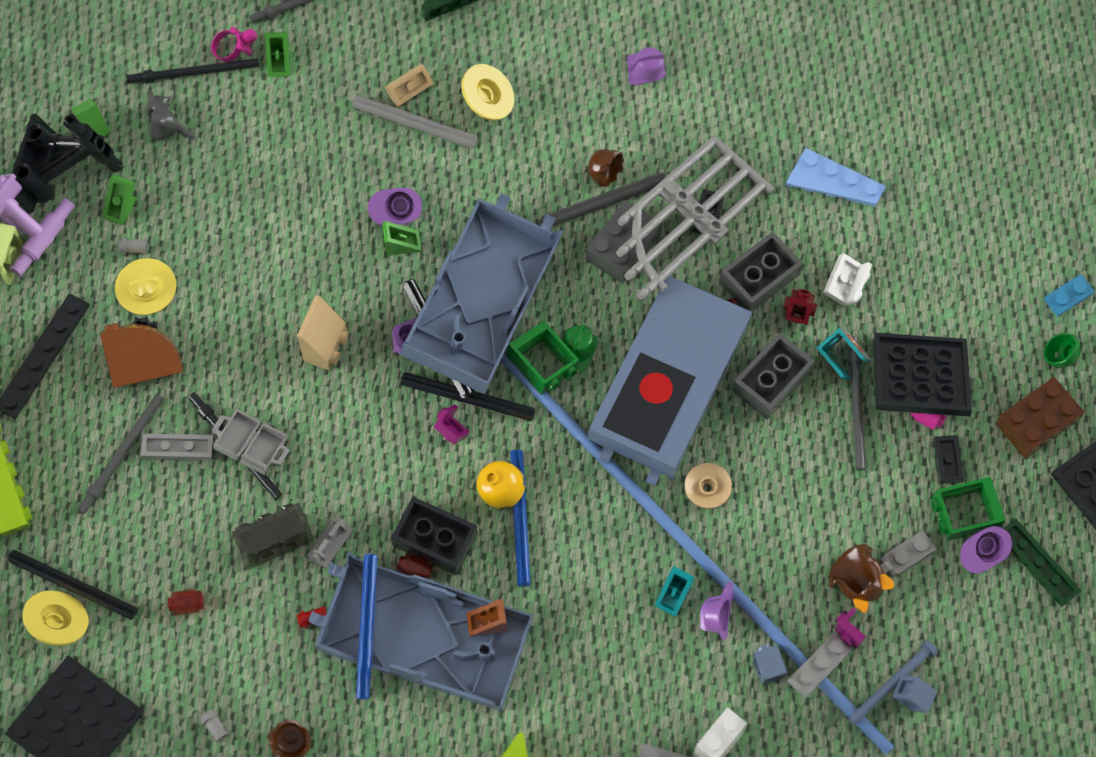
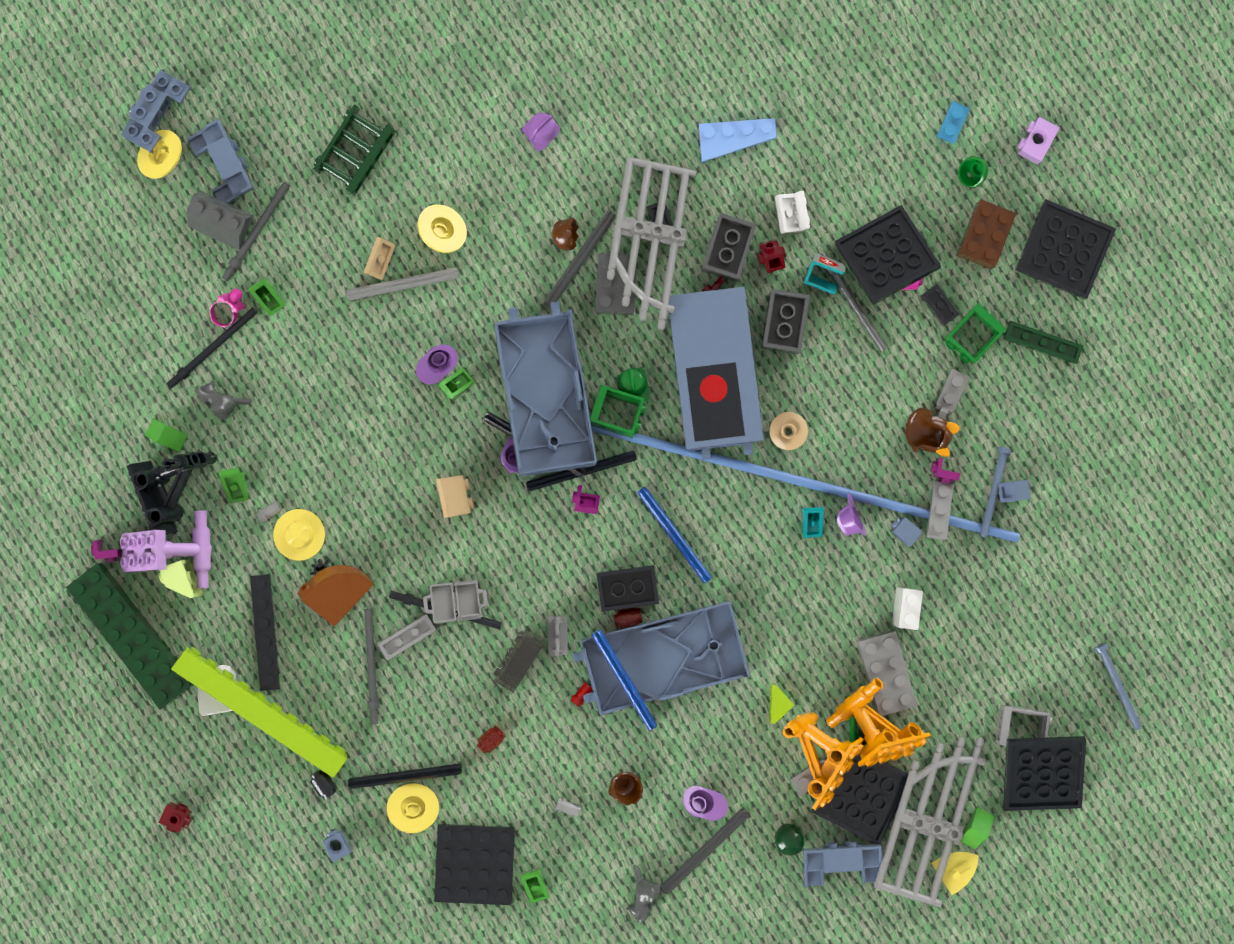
camera: 35 degrees left, 20 degrees up
(487, 619) = (701, 624): dark orange slope -> none
(500, 484) = (647, 522): yellow cylinder -> none
(985, 549) = (1003, 357): medium lavender piece -> none

